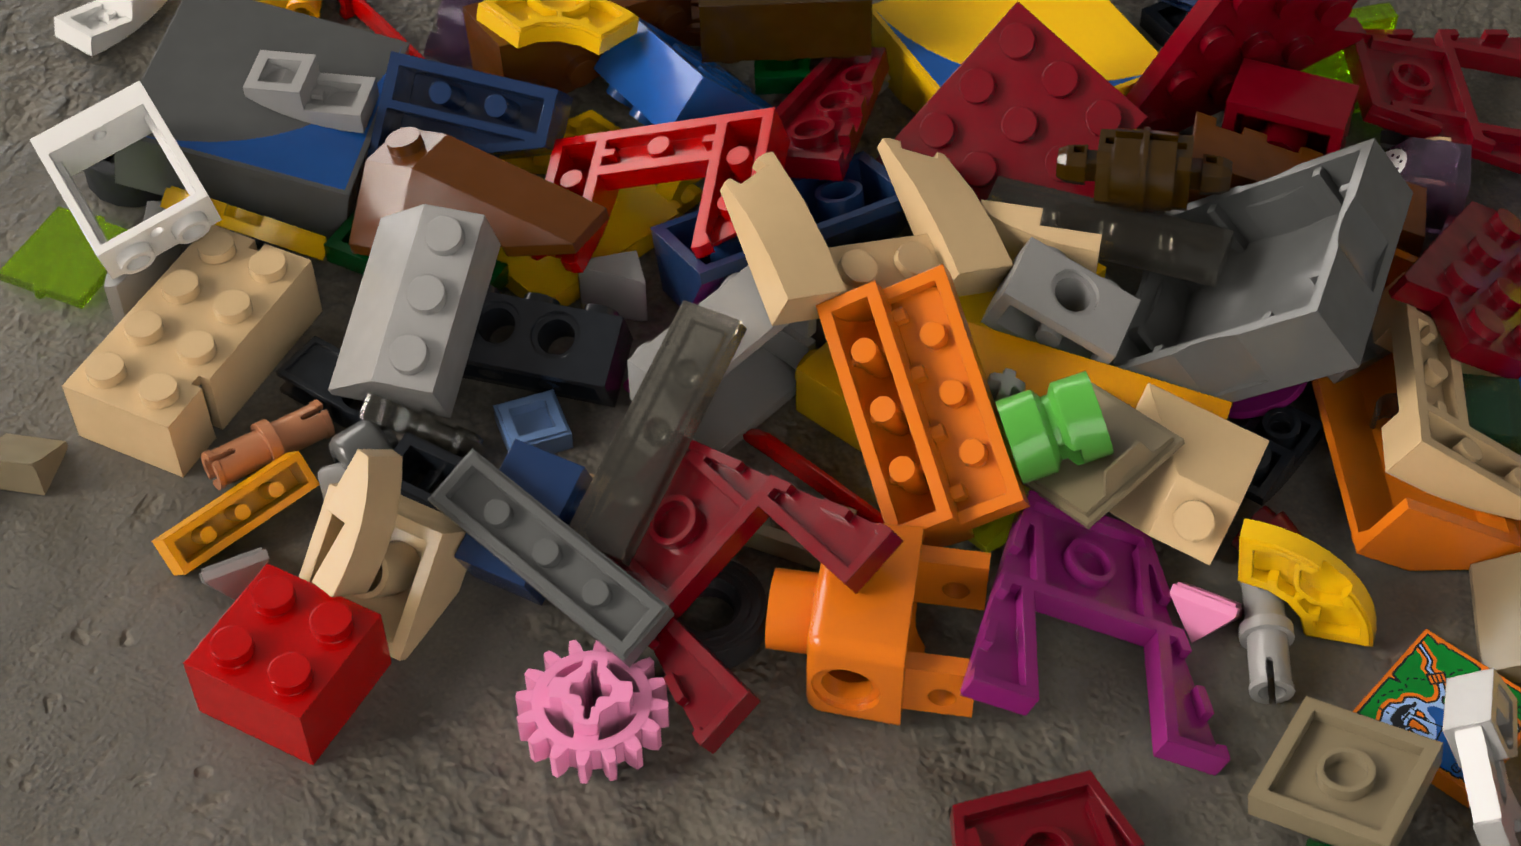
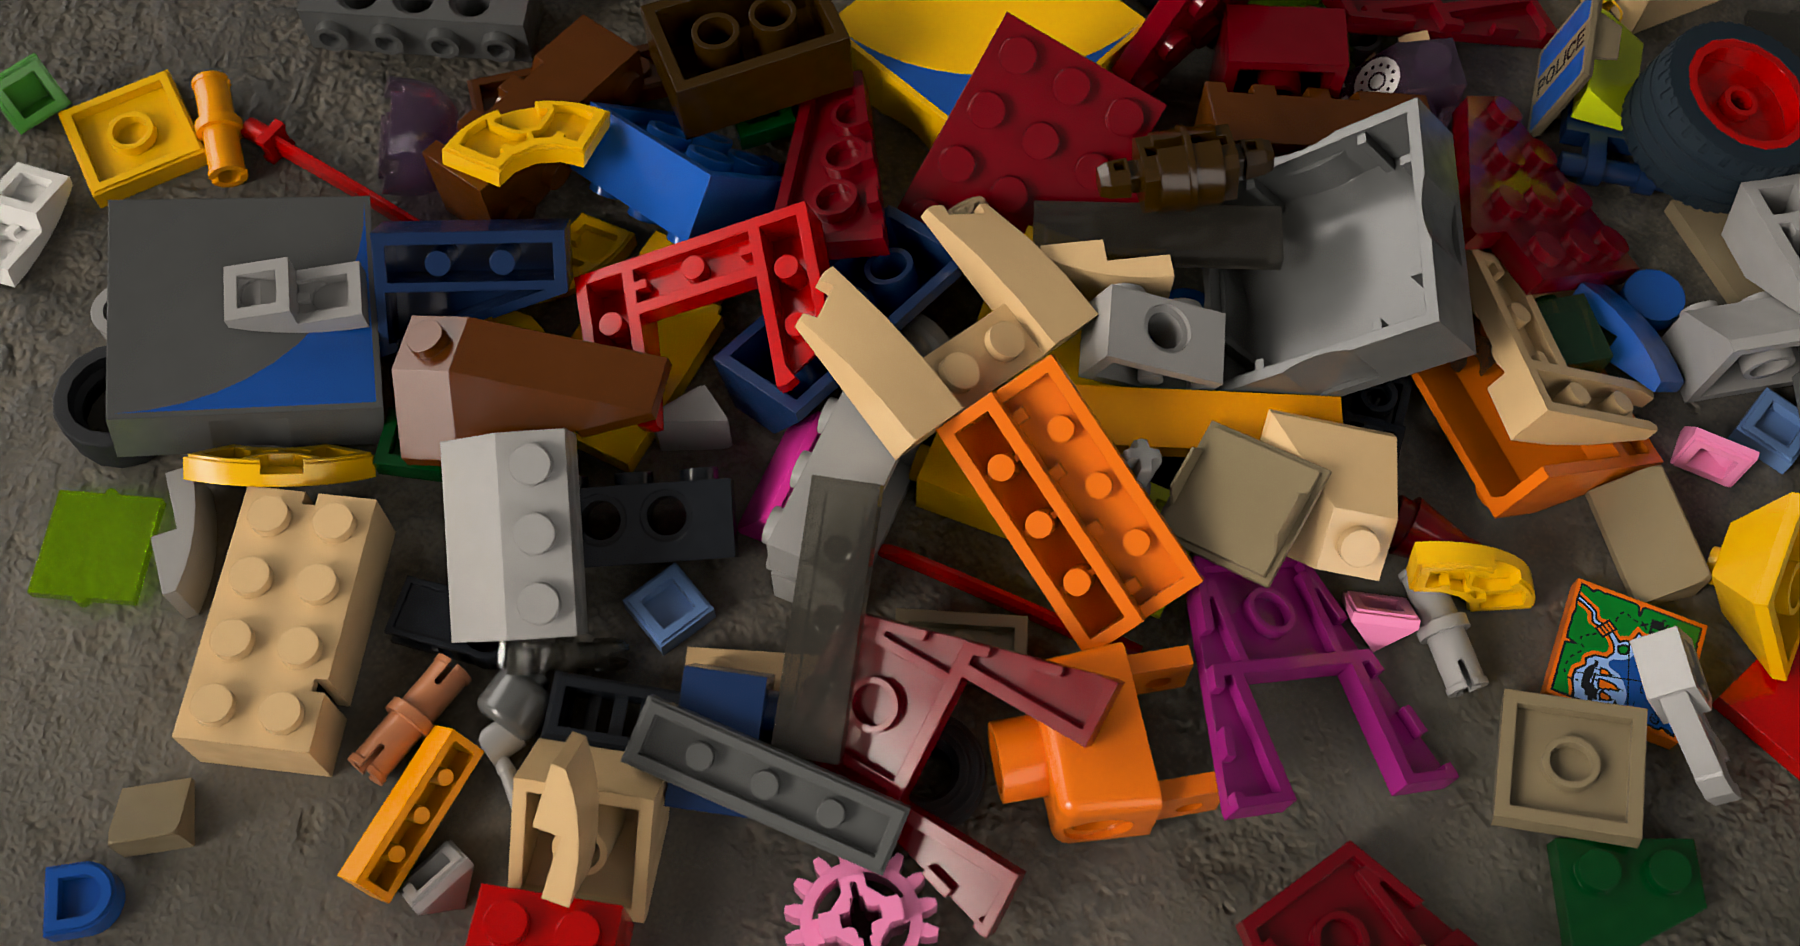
camera: 20 degrees left, 15 degrees up
(101, 133) = (94, 433): white window -> none
(1055, 427) = (1217, 494): bright green wheel -> none

